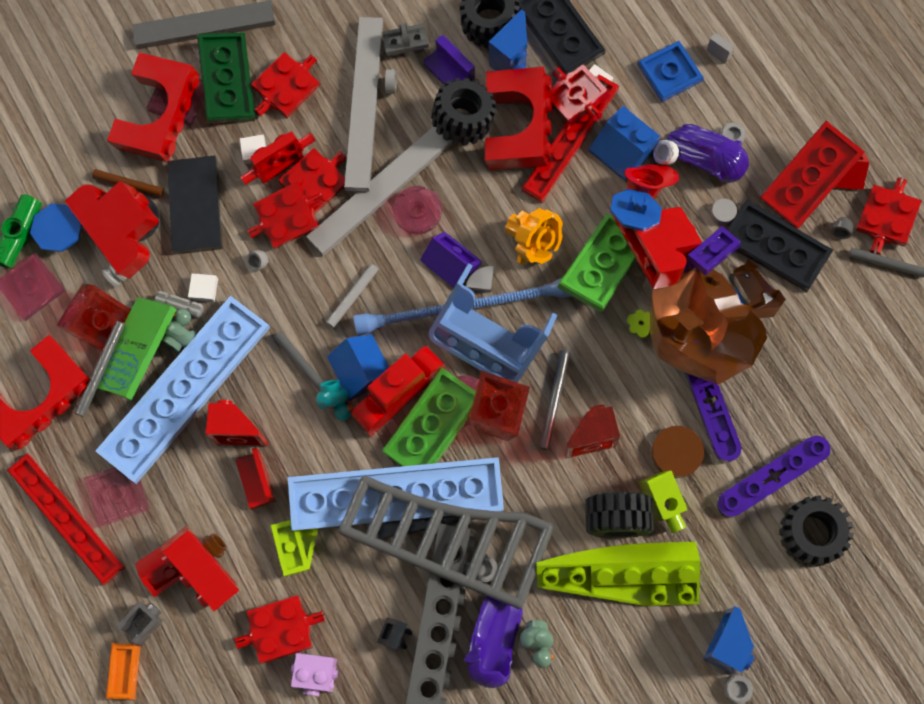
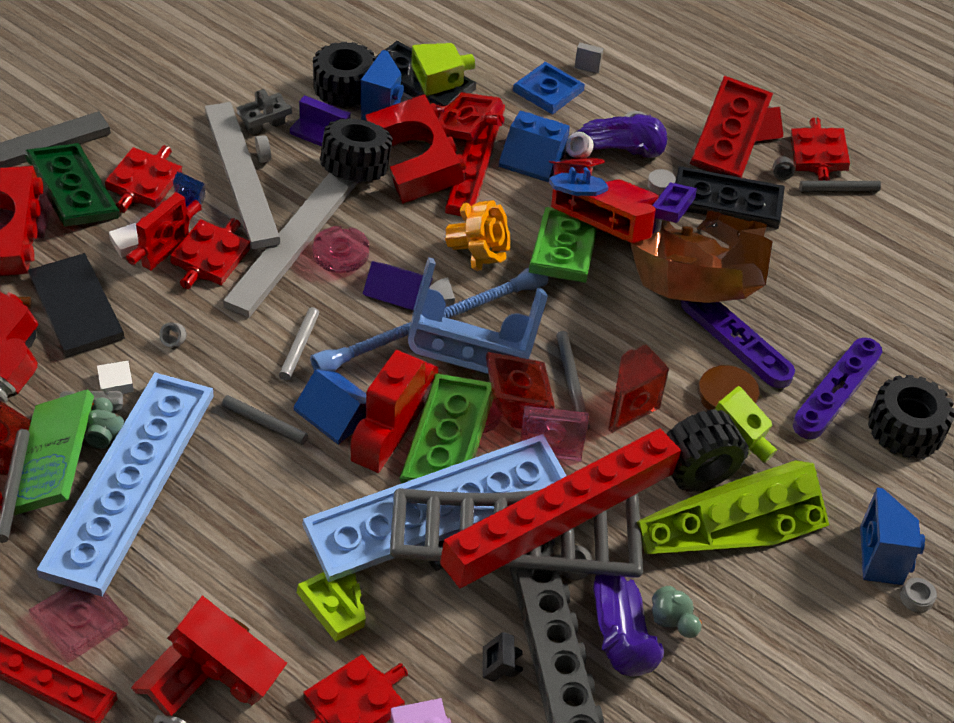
camera: 30 degrees left, 25 degrees down
(231, 427) = (215, 491): red slope -> none
(255, 479) = (259, 547): red panel -> none
(286, 215) = (192, 283): red plate -> none
(308, 121) = (189, 188): none -> clear blue tile
(334, 395) = (320, 435): teal animal -> none
(478, 538) = (558, 508): none -> red brick
(509, 456) = (562, 429): none -> clear pink tile
(575, 29) = (440, 66): none -> lime torso
(634, 320) = (629, 290): lime plant -> none

